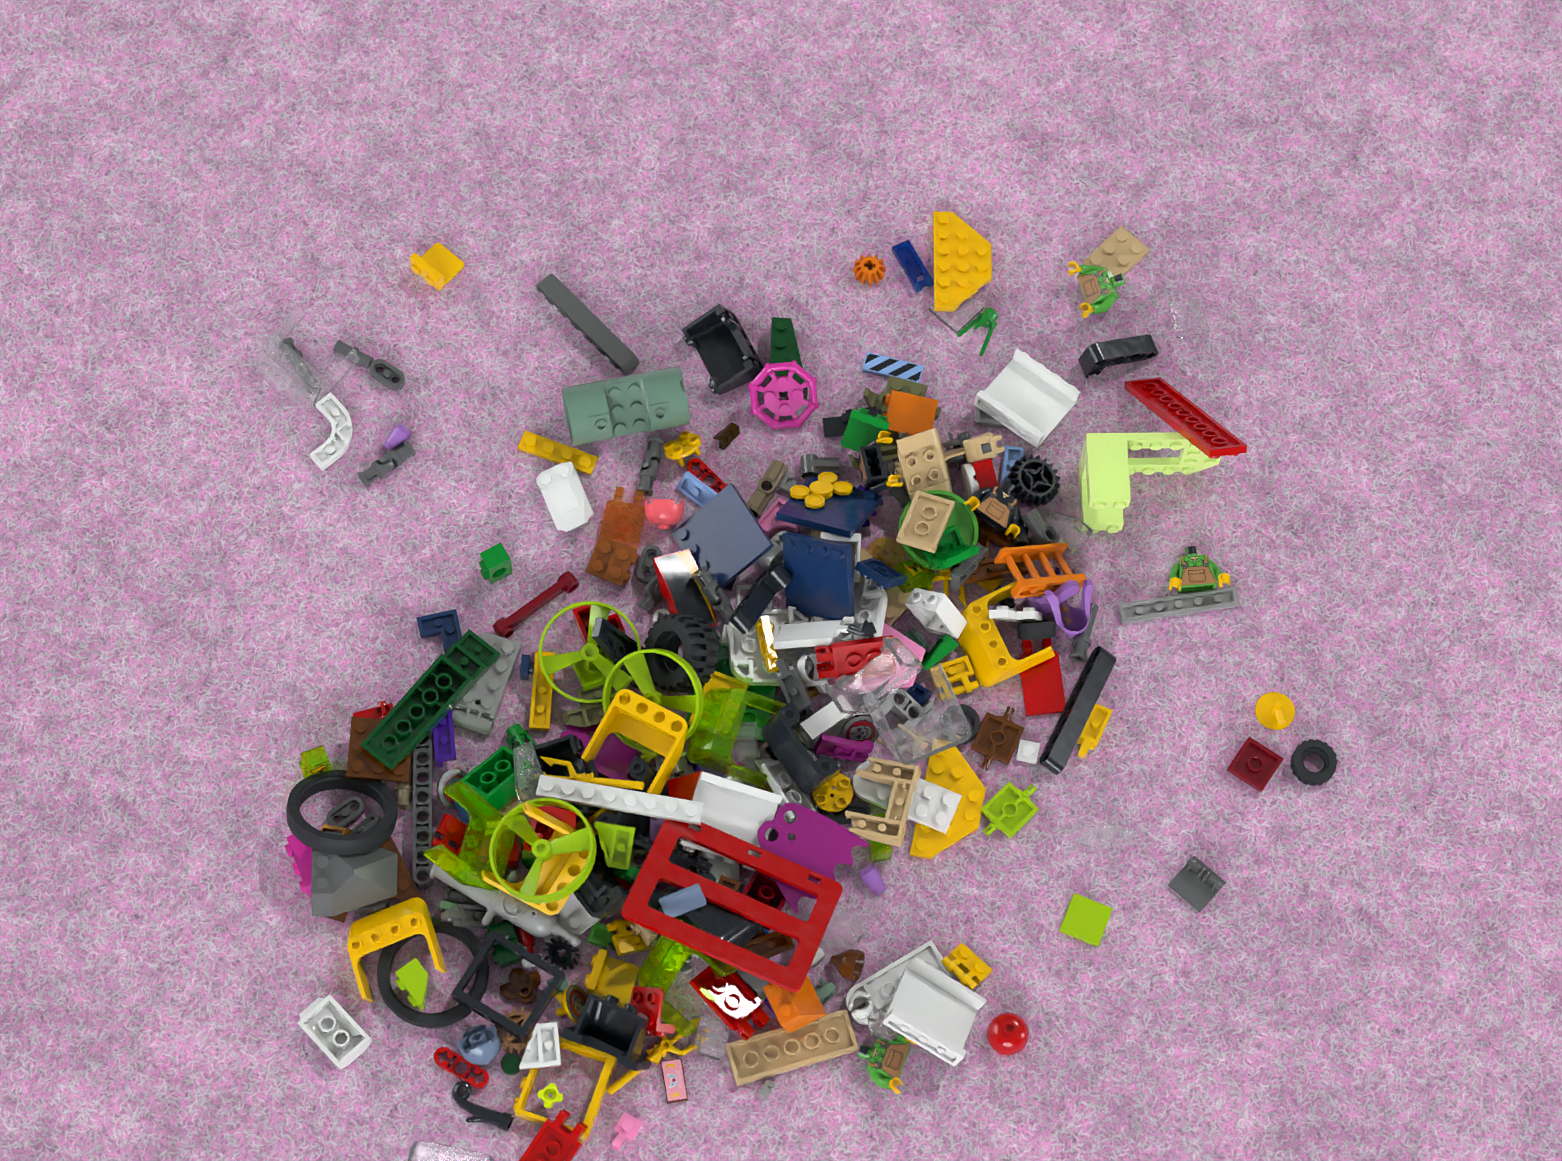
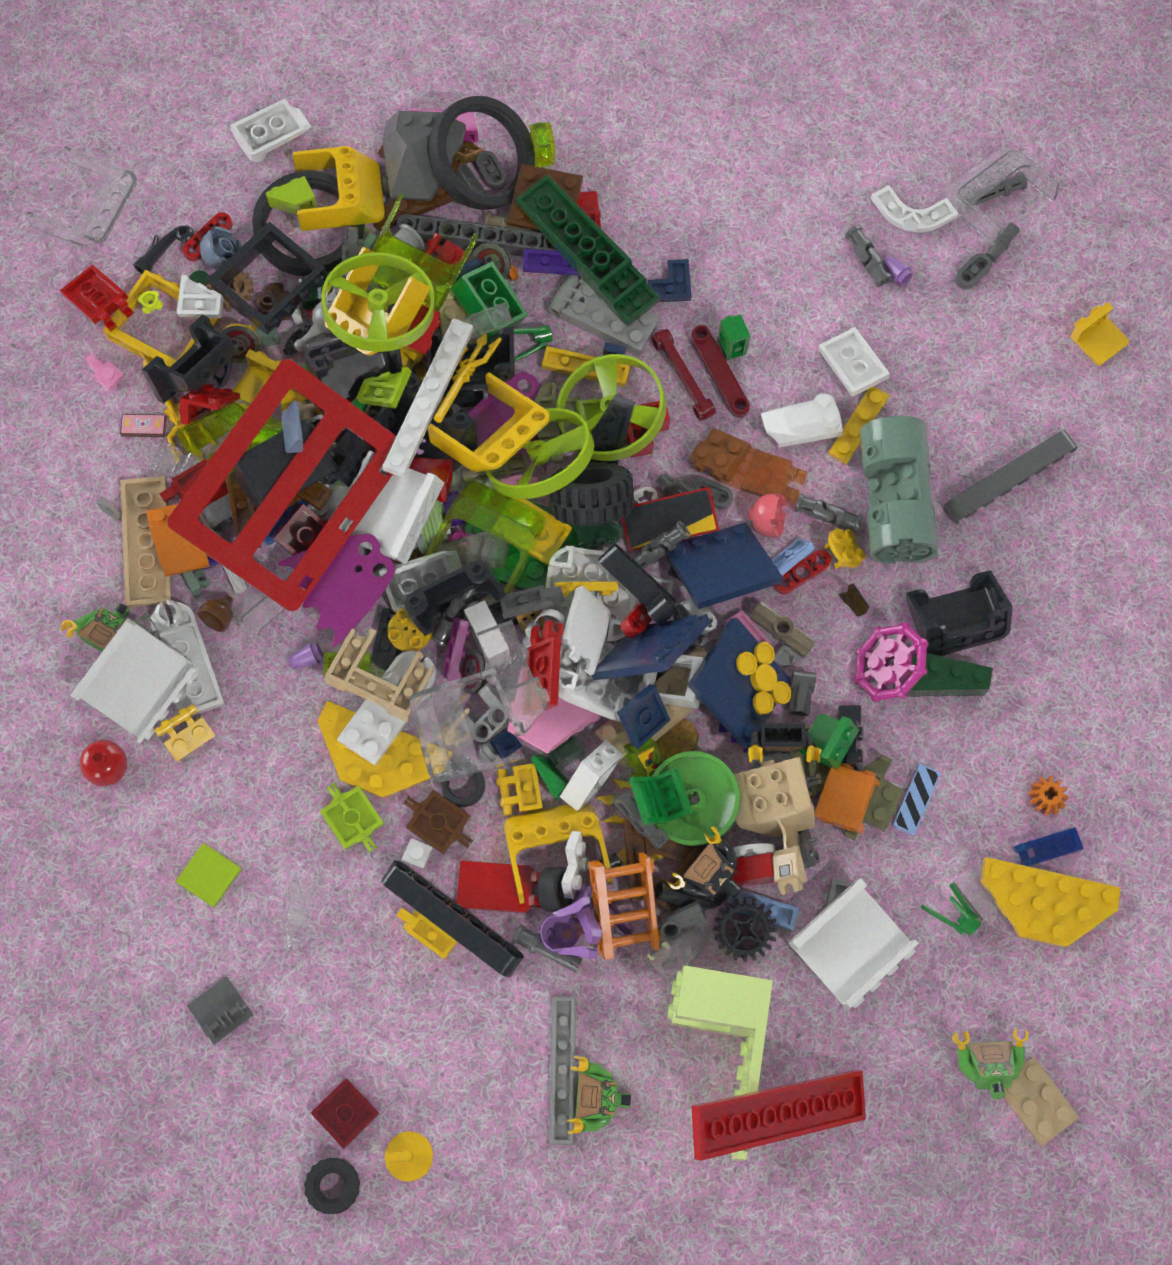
camera: 100 degrees right, 5 degrees up
(498, 462) = (853, 361): none -> white plate
(527, 574) = (720, 371): none -> dark red piece
(789, 599) = (635, 621): none -> red beam
(868, 629) = (566, 677): black plate -> none
(925, 521) = (696, 775): tan plate -> none
(1116, 352) = (900, 1070): black beam -> none

